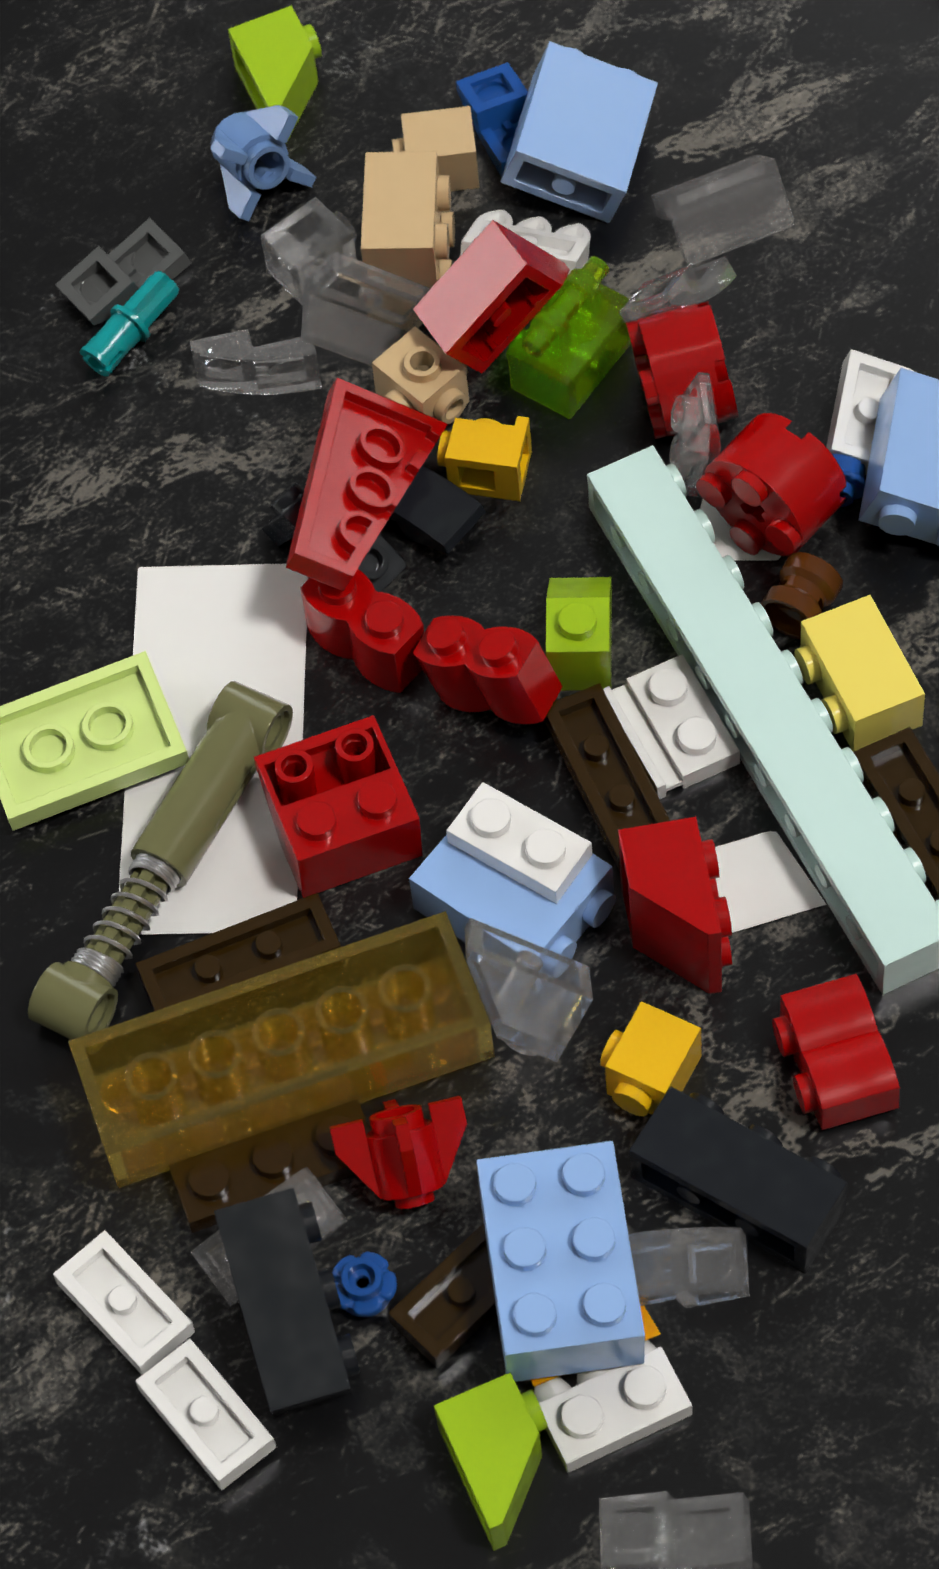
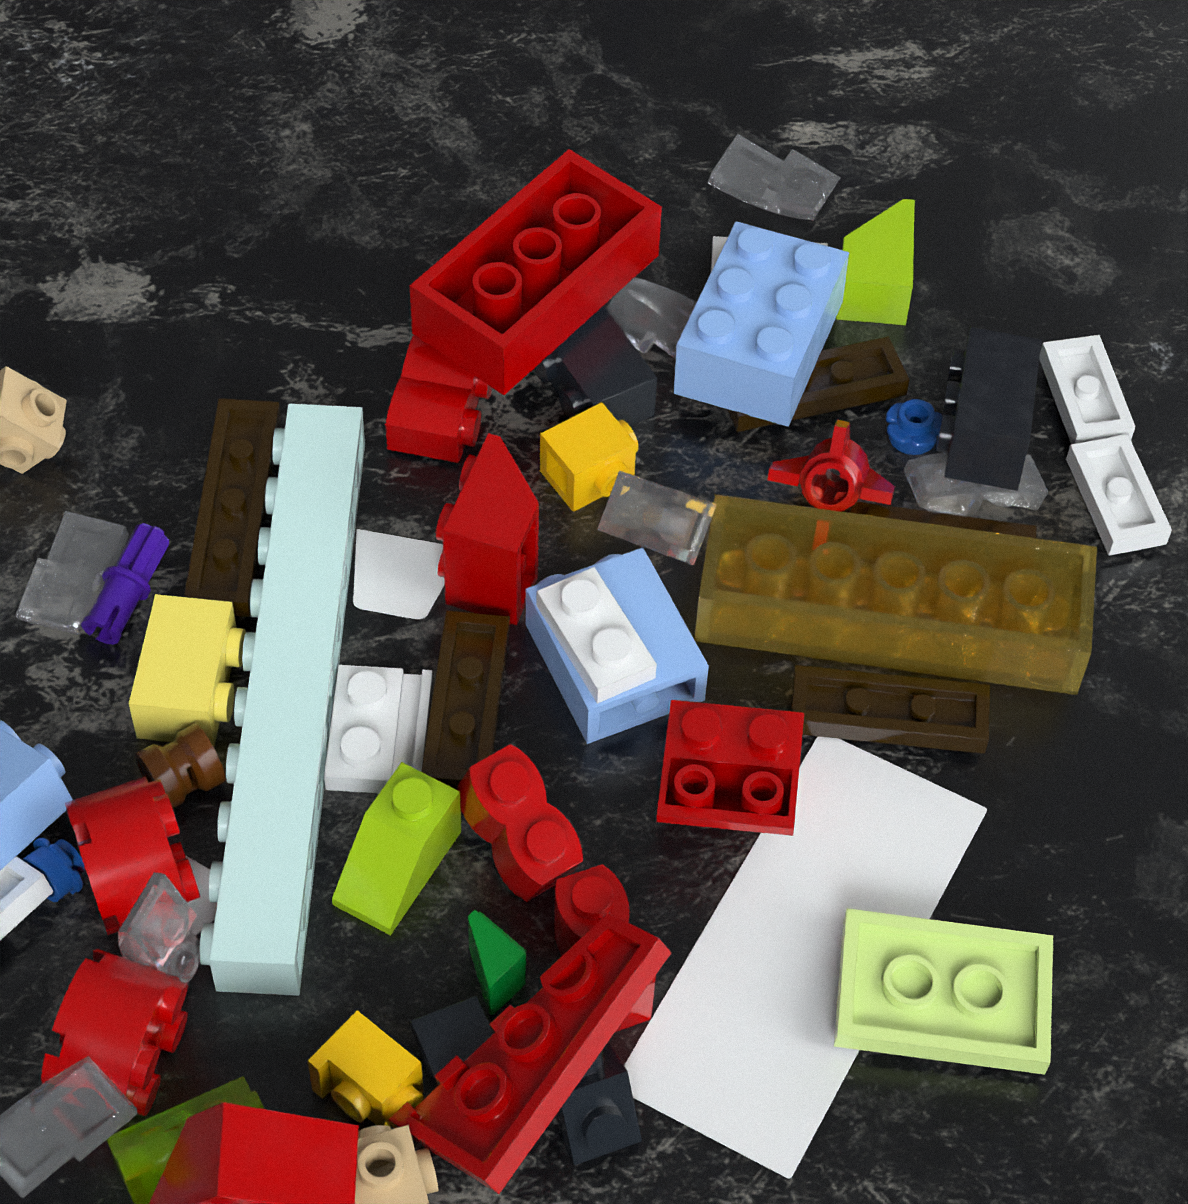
camera: 160 degrees left, 5 degrees down
(241, 725) = (784, 902): olive piece -> none
(447, 580) = (497, 961): none -> green slope
(801, 1153) = (535, 271): none -> red brick

